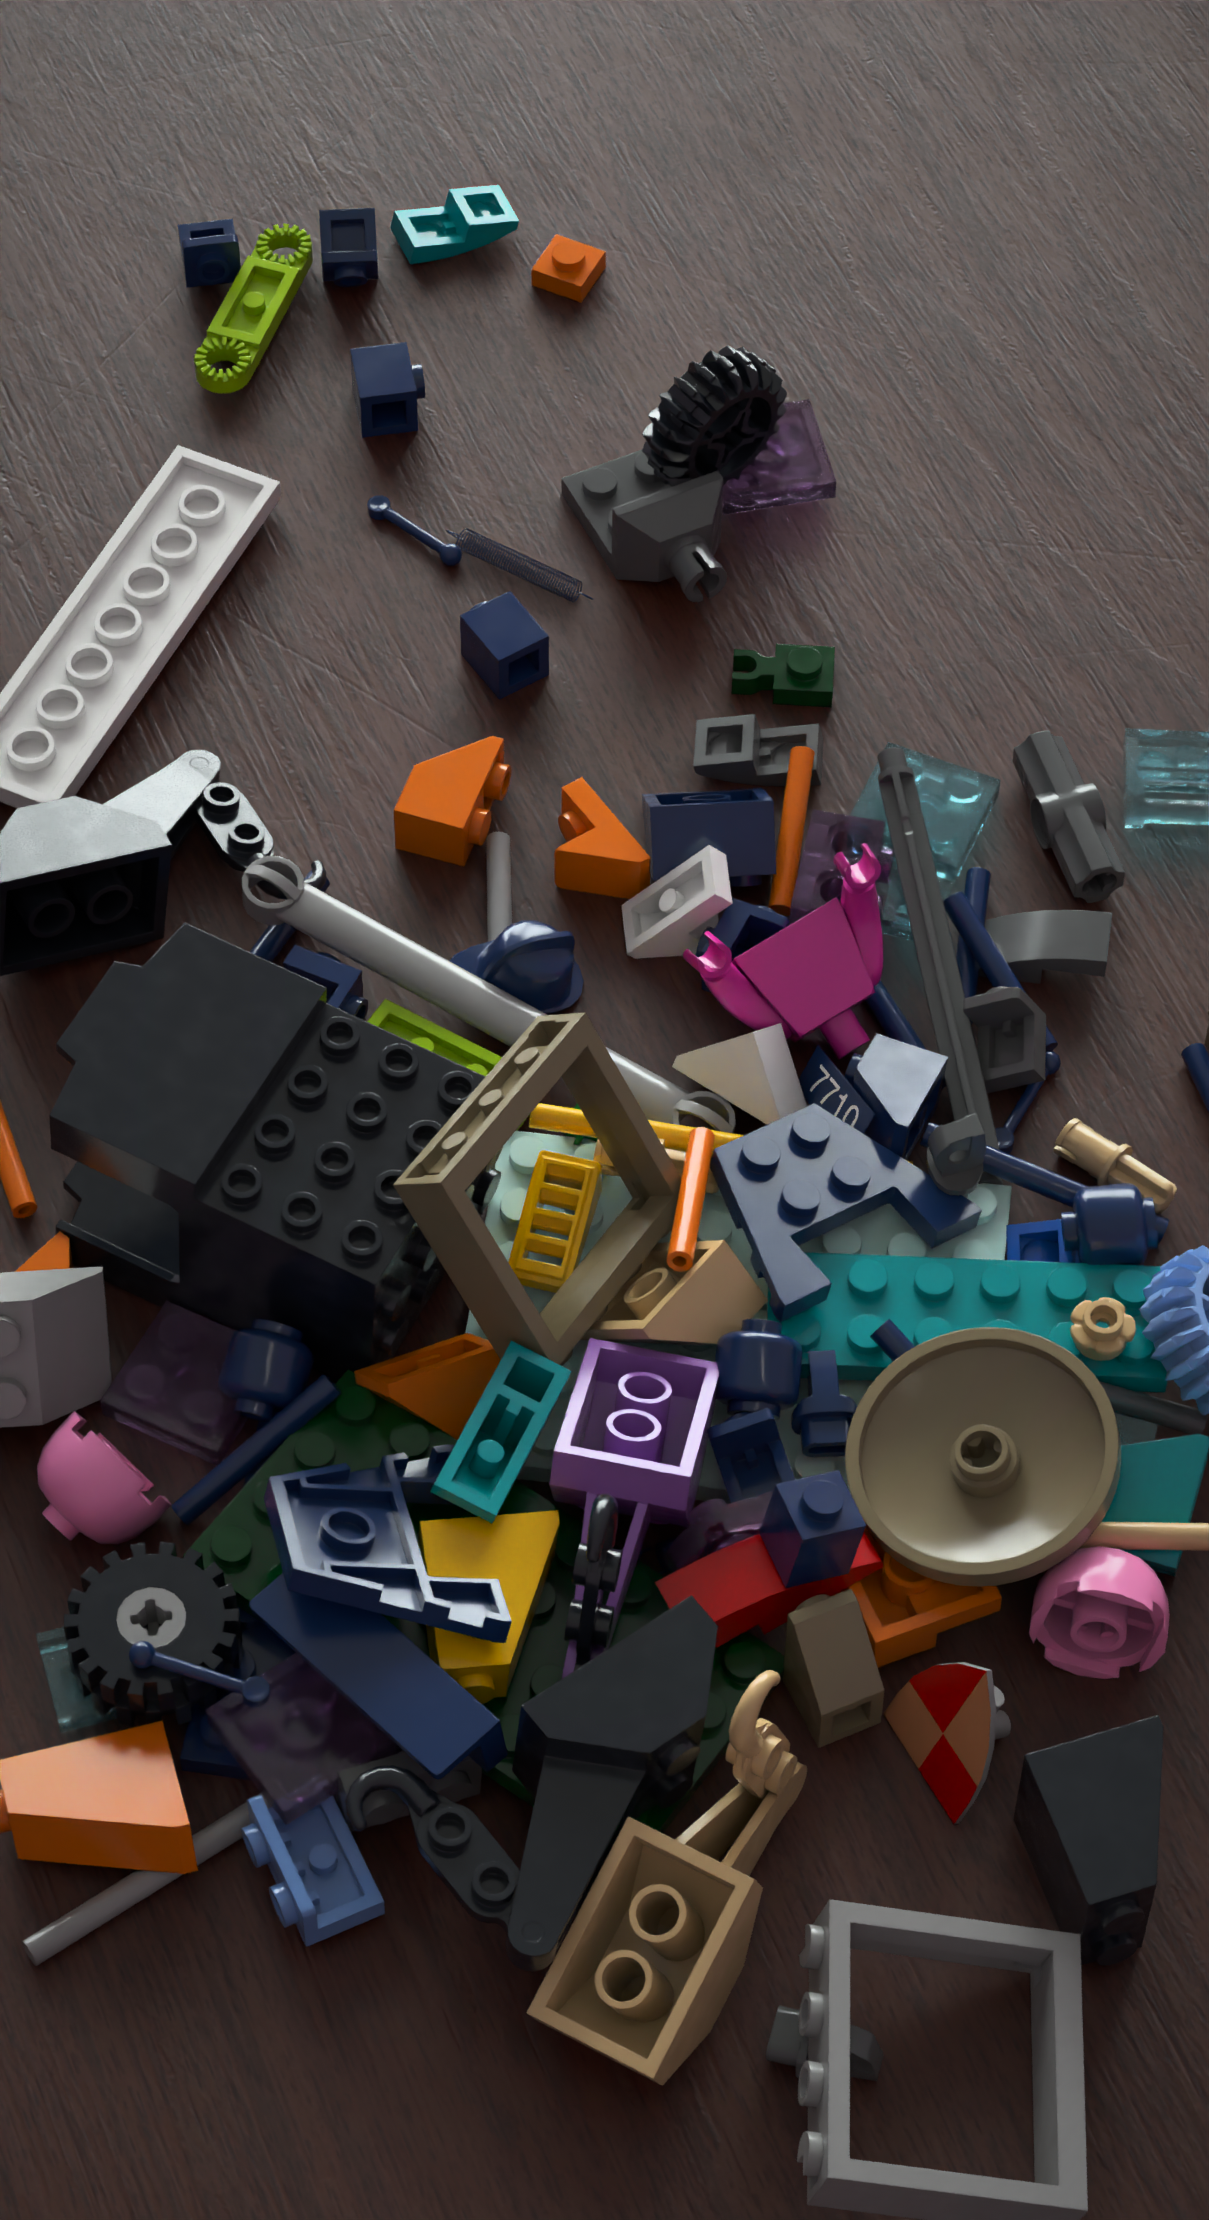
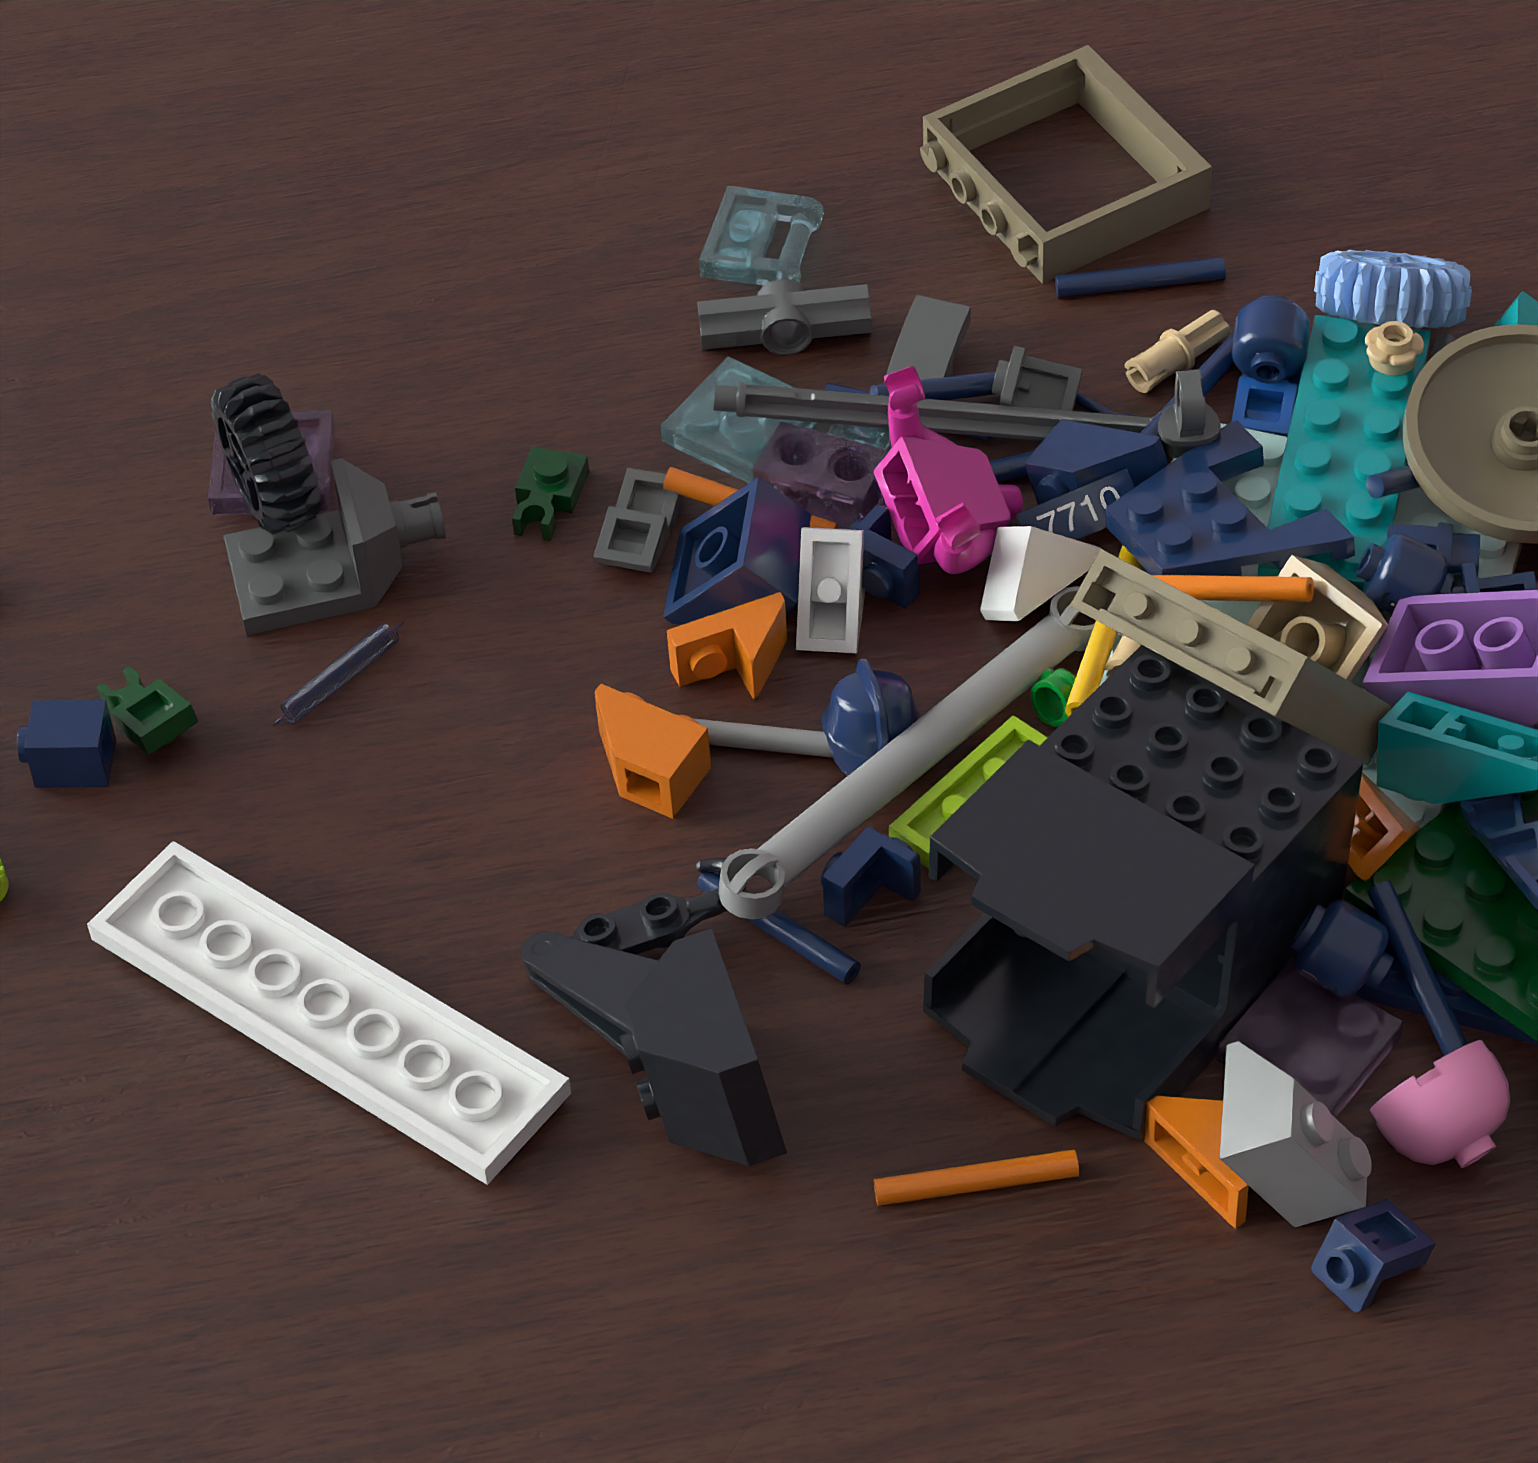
camera: 75 degrees left, 5 degrees down
(380, 508) = (218, 778): dark blue hinge -> none
(437, 439) = (148, 714): none -> dark green plate
(504, 644) = (454, 686): dark blue brick -> none

